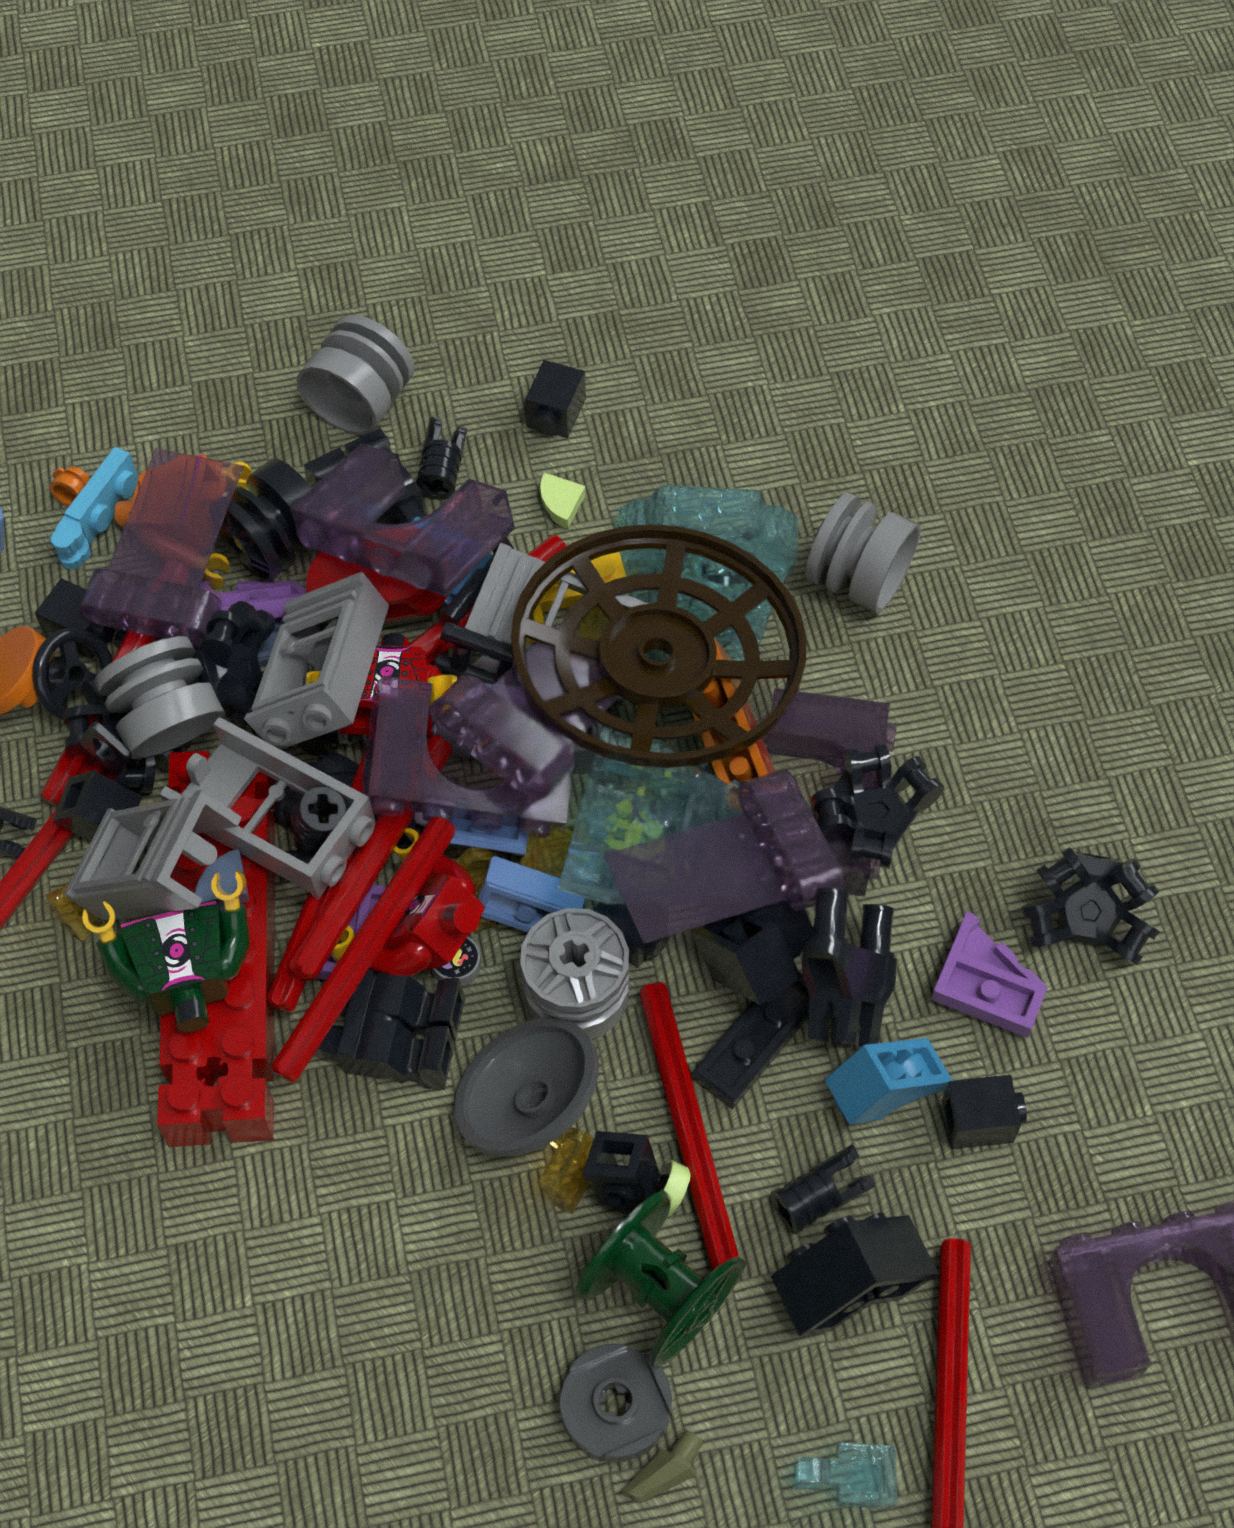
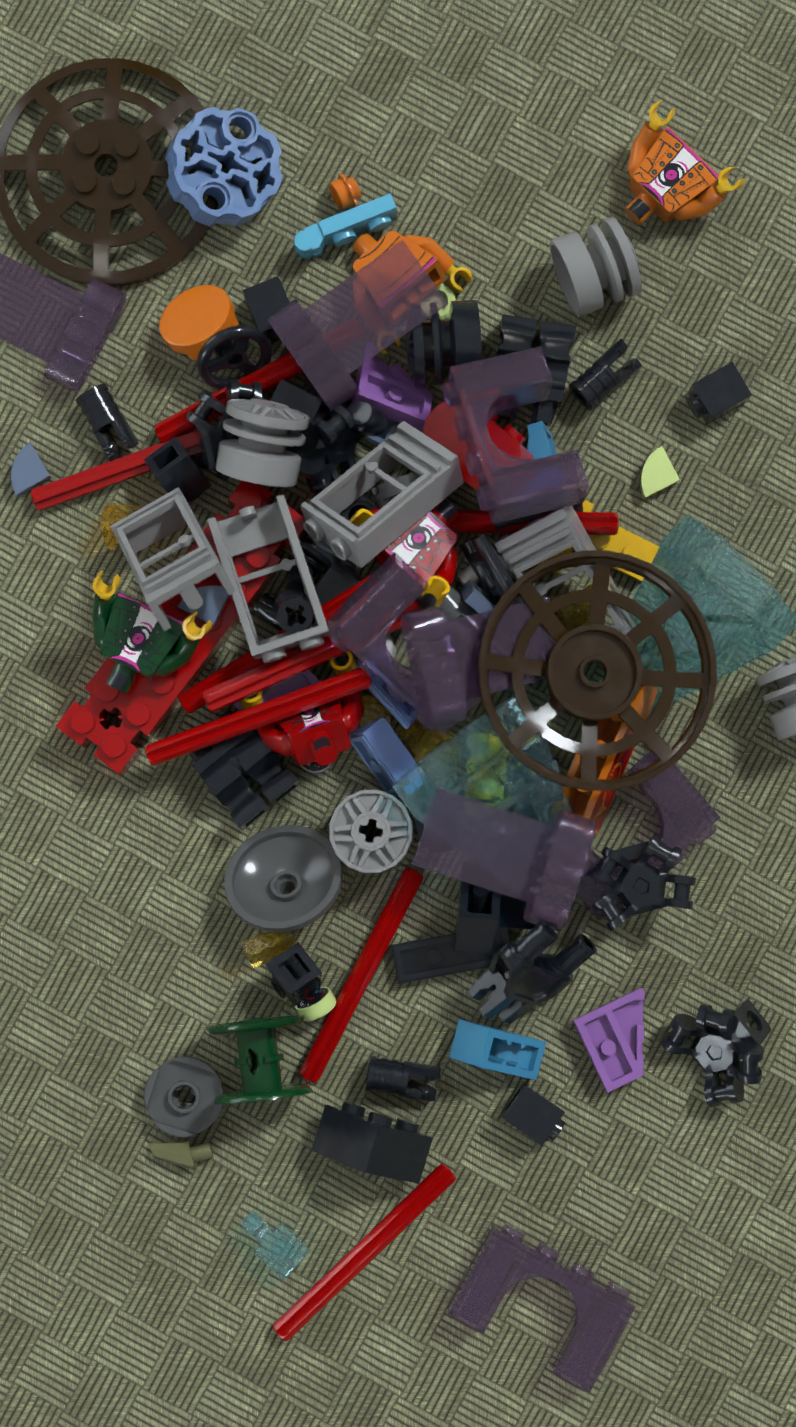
camera: 35 degrees right, 25 degrees up
(362, 276) = (672, 176): none -> orange torso

